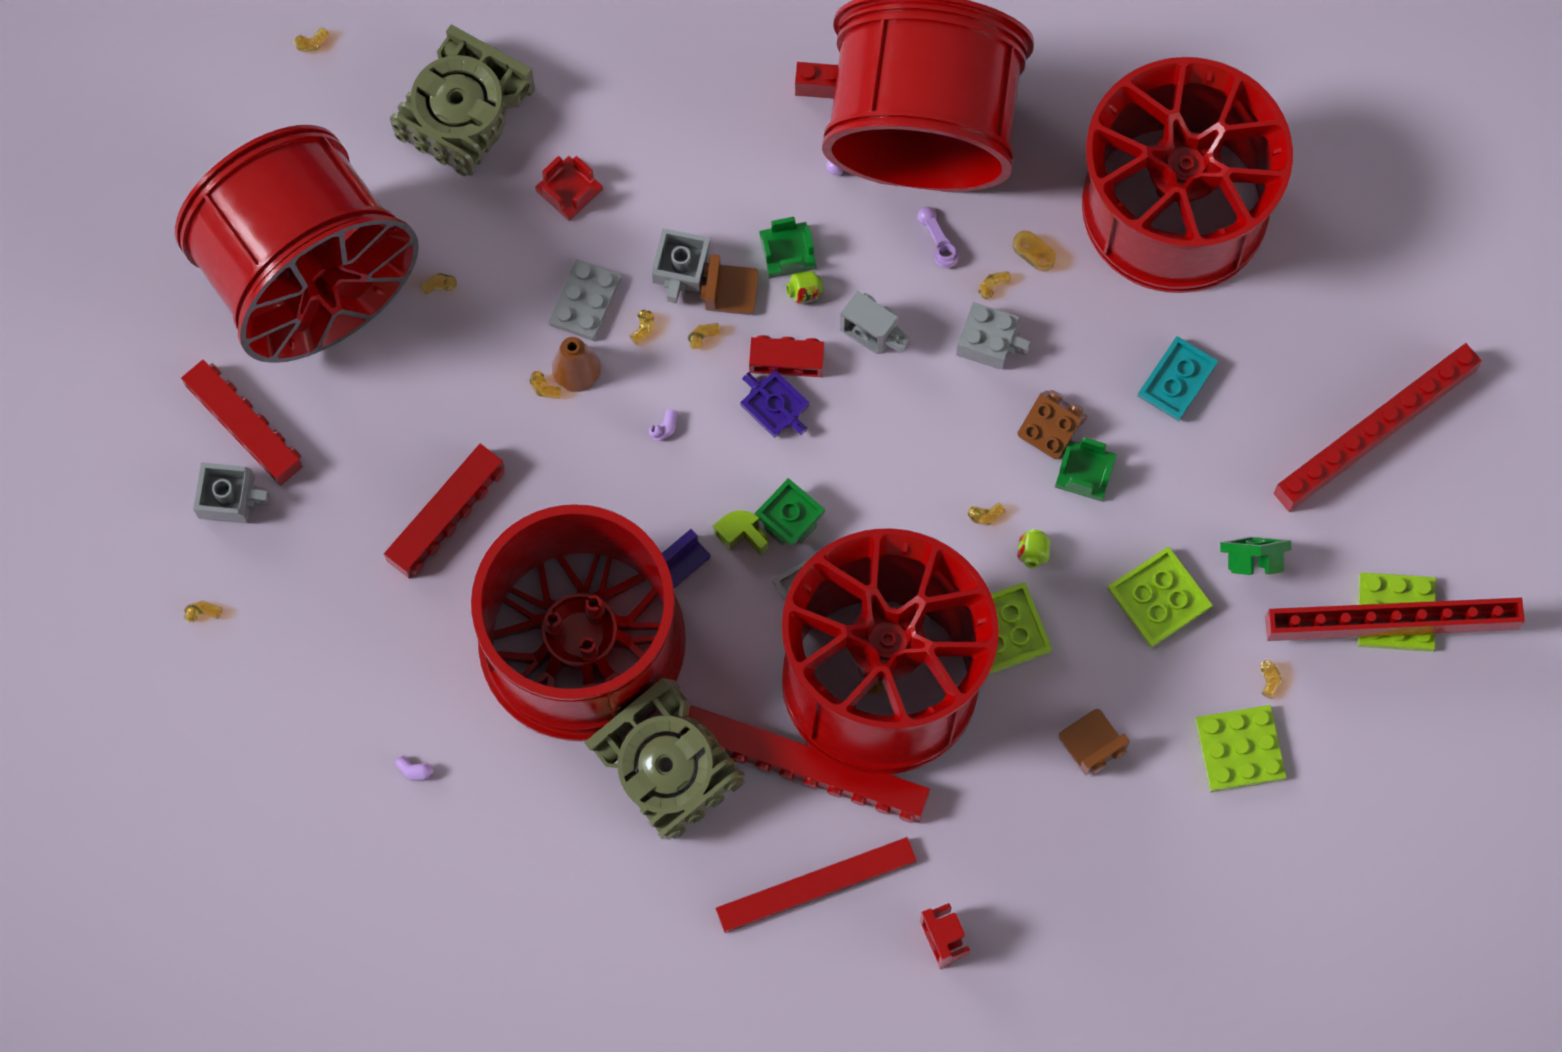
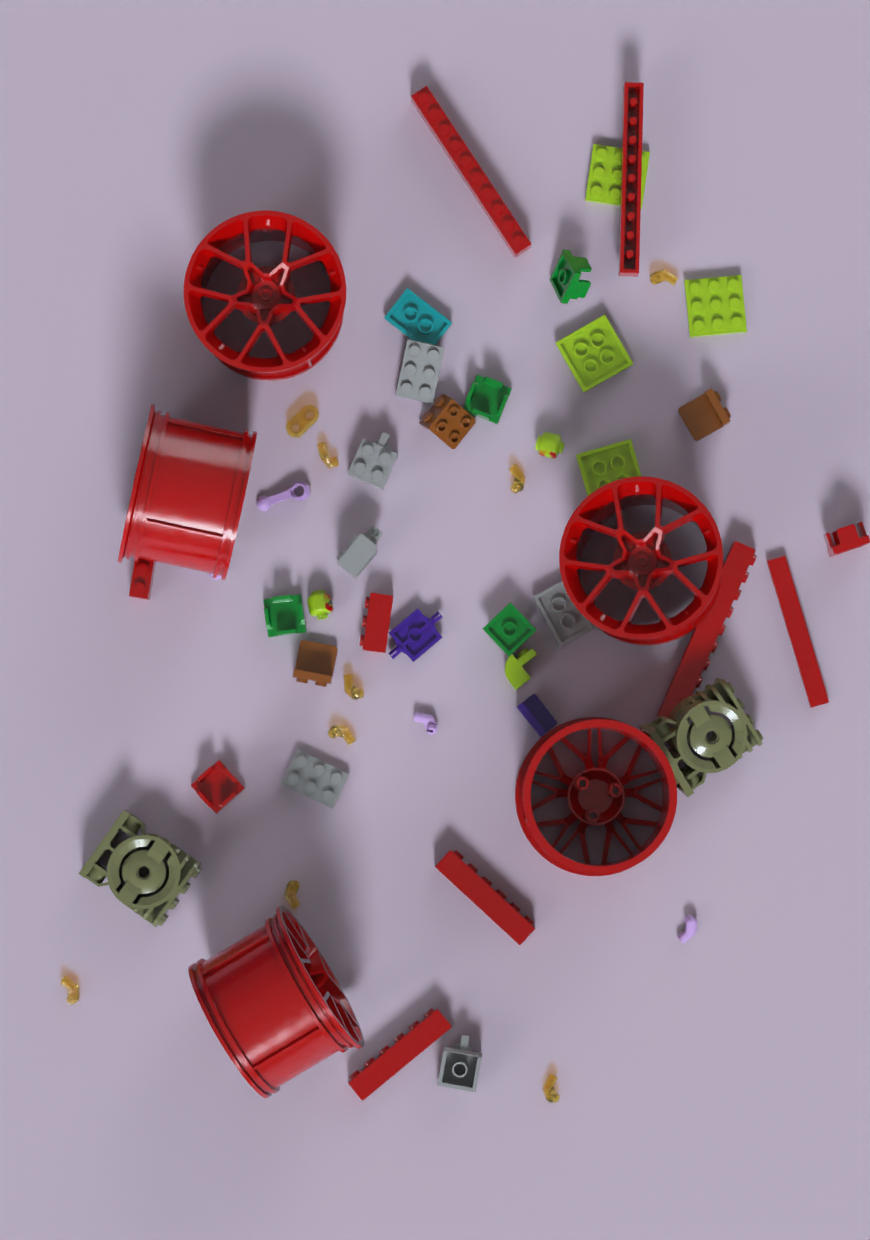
camera: 90 degrees left, 15 degrees up
(542, 388) = (387, 816): clear yellow arm -> none
(575, 365) = (381, 793): dark orange cone -> none
(680, 262) = (294, 700): light grey hinge -> none
(1113, 384) = (420, 371): none -> light grey plate

